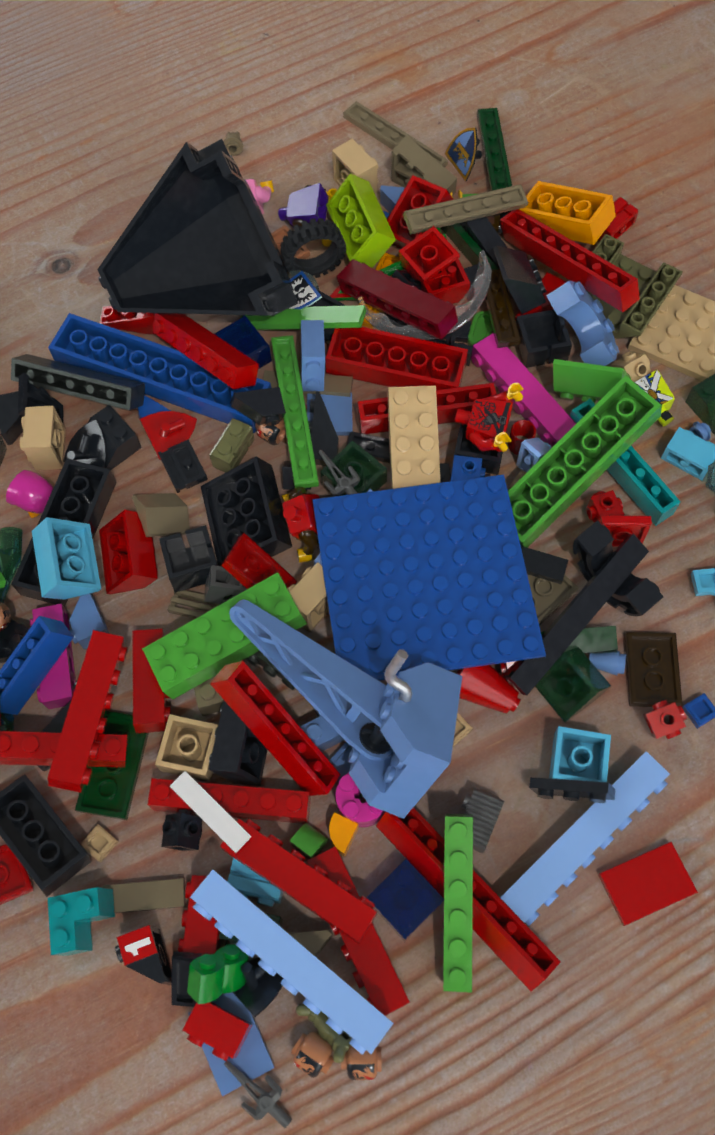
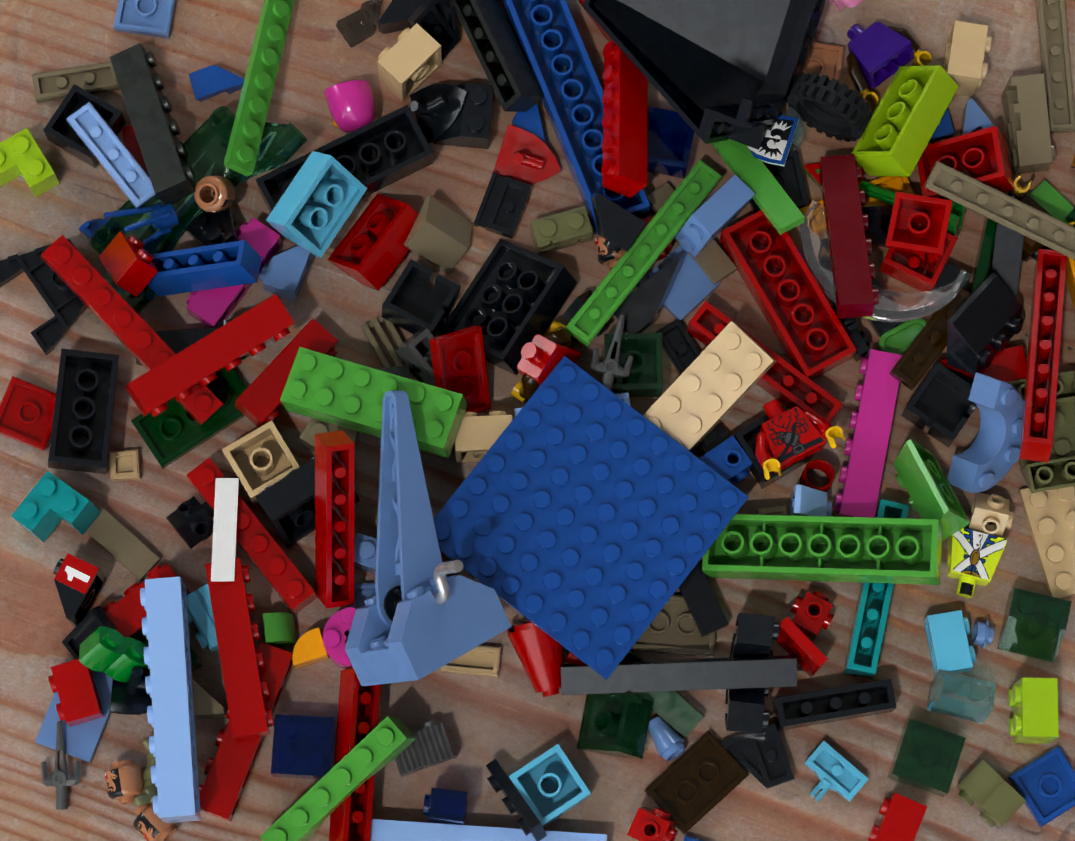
camera: 40 degrees right, 10 degrees up
(536, 838) = (446, 806): none -> clear blue brick
(671, 615) = (762, 756): none -> black wing
(677, 542) = (834, 704): none -> black brick

